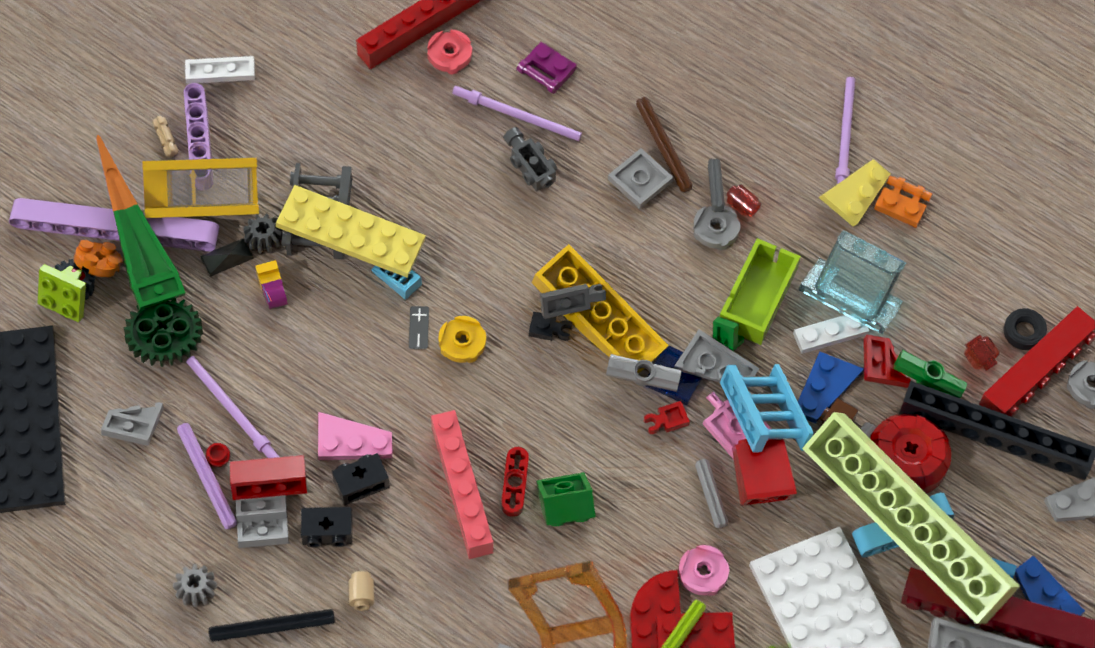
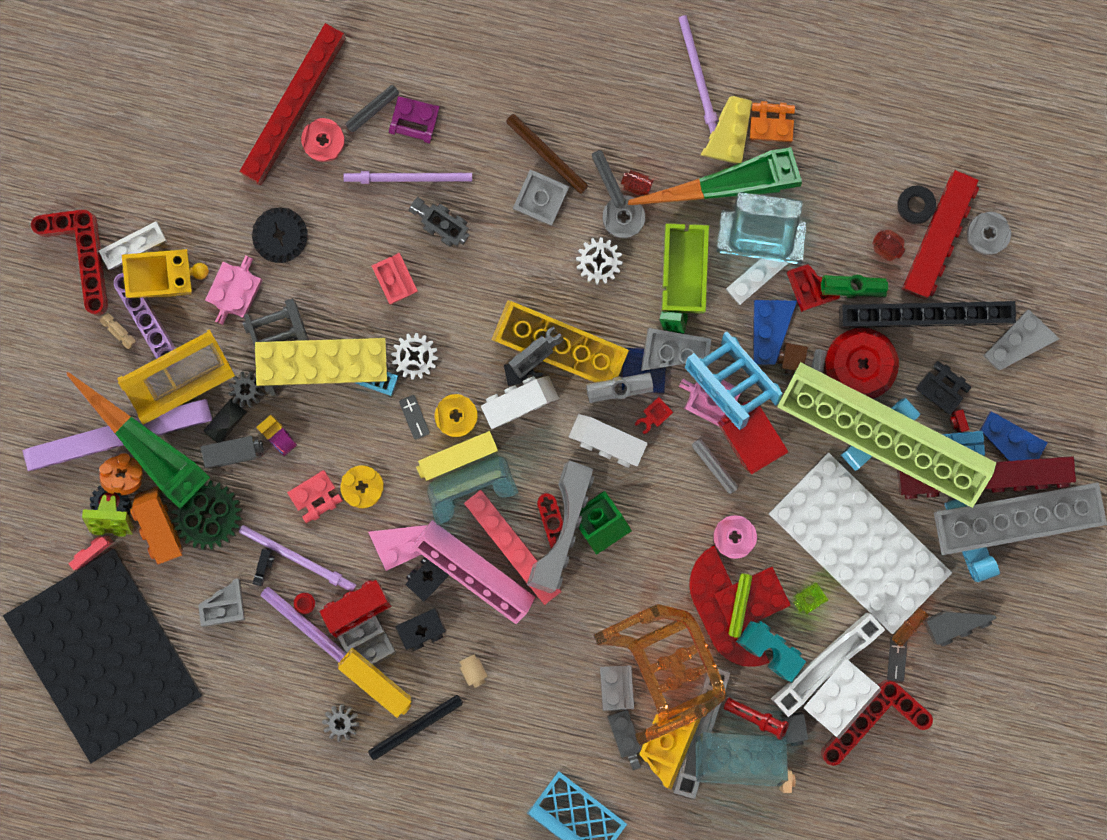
camera: 20 degrees left, 25 degrees up
(29, 316) = (97, 546): none -> coral plate
(107, 318) = (156, 526): none -> orange wedge
(150, 23) = (84, 253): none -> red beam
(196, 398) = (265, 561): none -> black plate
(219, 278) = (232, 452): none -> dark grey window
(229, 93) = (155, 274): none -> yellow slope
(252, 556) = (375, 683): none -> yellow brick
(278, 353) = (312, 490): none -> coral plate
(297, 144) = (233, 290): none -> bright pink plate
(331, 356) = (356, 497): none -> yellow plate
(377, 125) = (293, 240): none -> black gear
(410, 487) = (474, 572): none -> bright pink brick
(413, 405) = (468, 480): none -> clear light blue windscreen
(438, 275) = (406, 363): none -> white gear
(445, 376) = (457, 456): none -> light yellow brick
(460, 193) = (394, 278): none -> coral plate
(489, 506) = (573, 486): none -> light grey arch
(510, 43) = (372, 108): none -> dark grey axle
(534, 346) = (519, 401): none -> white wedge
(610, 420) = (607, 440): none -> white wedge
(679, 262) = (609, 261): none -> white gear
(887, 236) = (758, 175): none -> green plate
(984, 516) = (938, 392): none -> black plate
(994, 547) = (958, 421): none -> red plate

